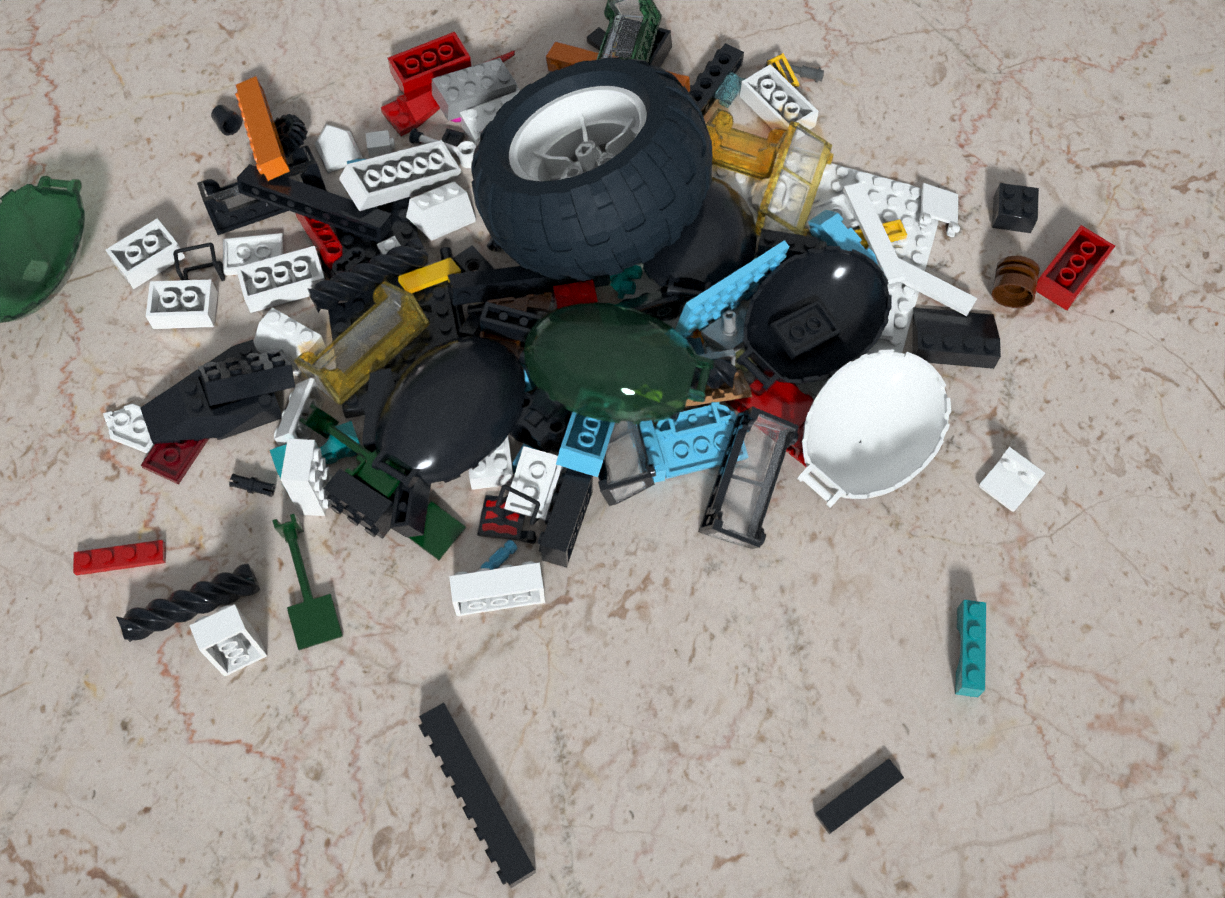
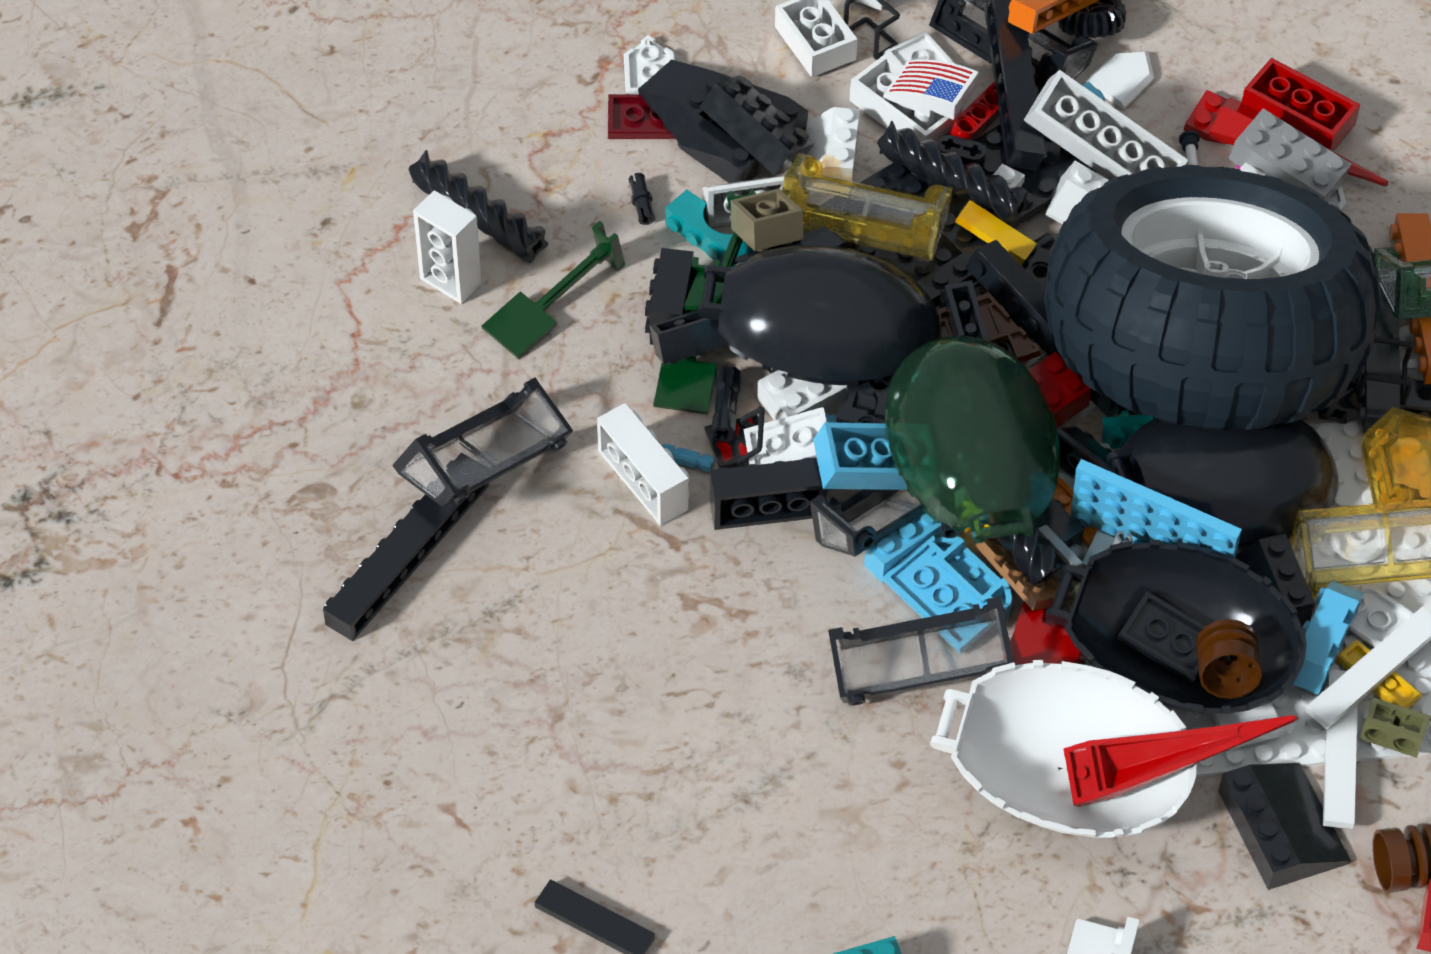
camera: 65 degrees right, 10 degrees down
(119, 557) = (497, 129): red plate -> none
(289, 252) = (932, 87): none -> white slope
(305, 477) = (663, 219): white brick -> none
(347, 406) = (767, 220): none -> dark tan brick
(379, 143) = (1150, 111): white brick -> none
(426, 697) = (484, 446): none -> clear windscreen
(482, 516) = (726, 404): none -> black axle
(851, 301) = (1228, 658): none -> reddish brown wheel
(893, 402) = (1118, 765): none -> red plate
(923, 242) = (1395, 727): none -> olive brick

